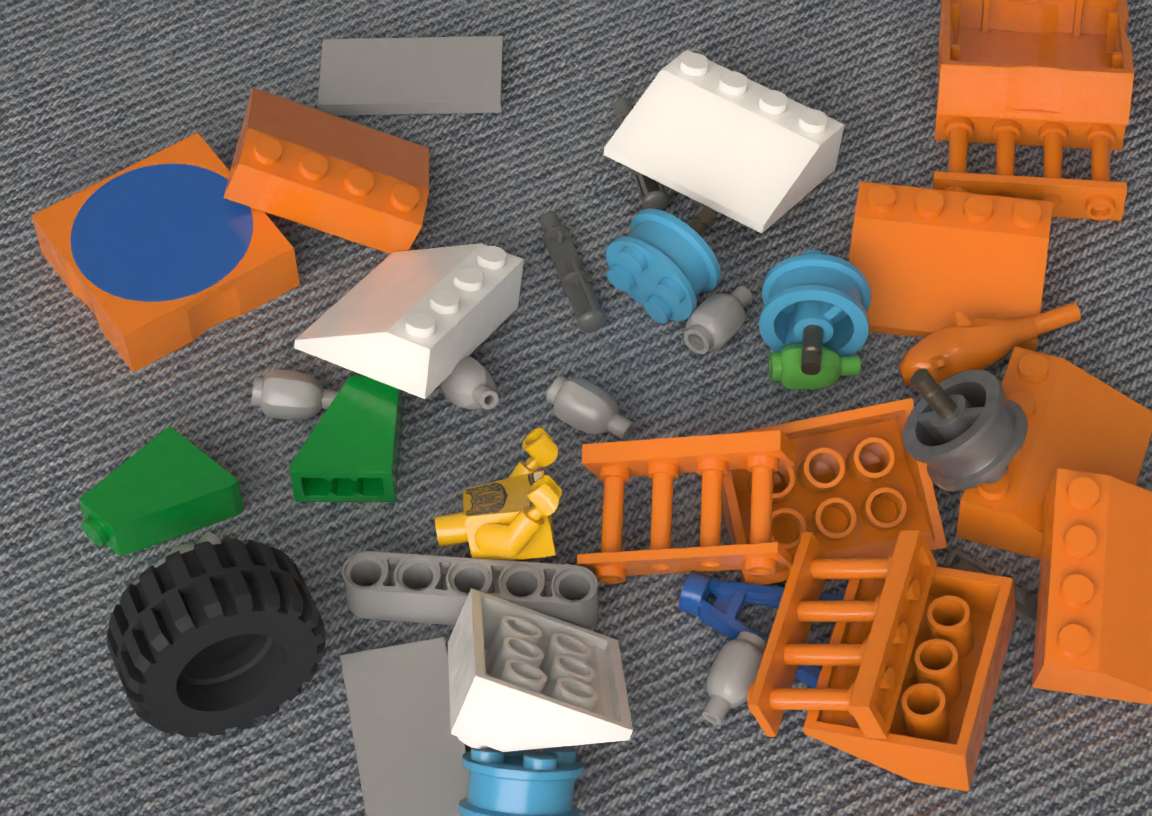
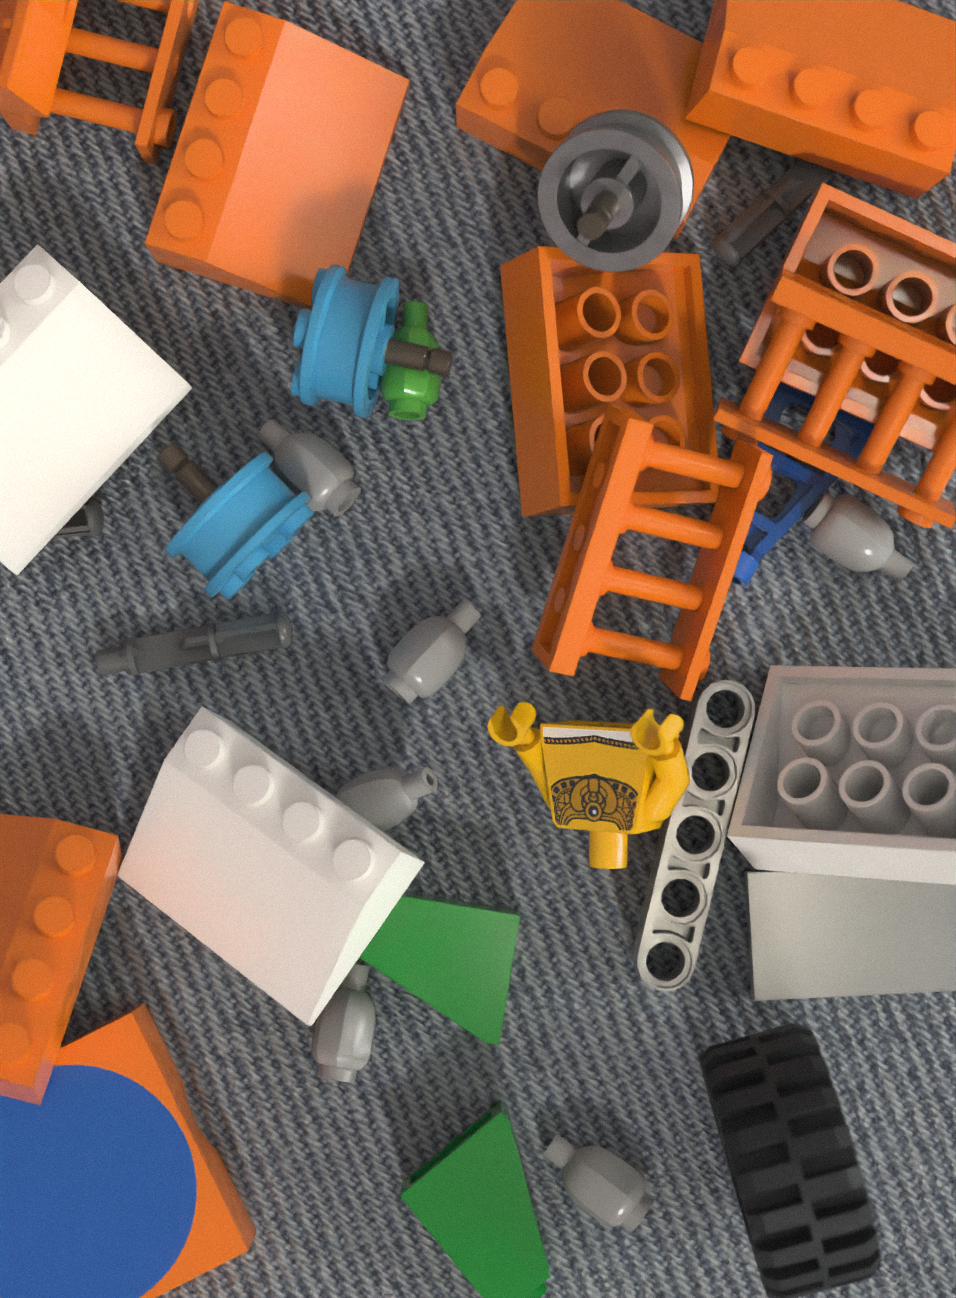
camera: 90 degrees left, 35 degrees up
(979, 342) = (417, 152): orange piece -> none

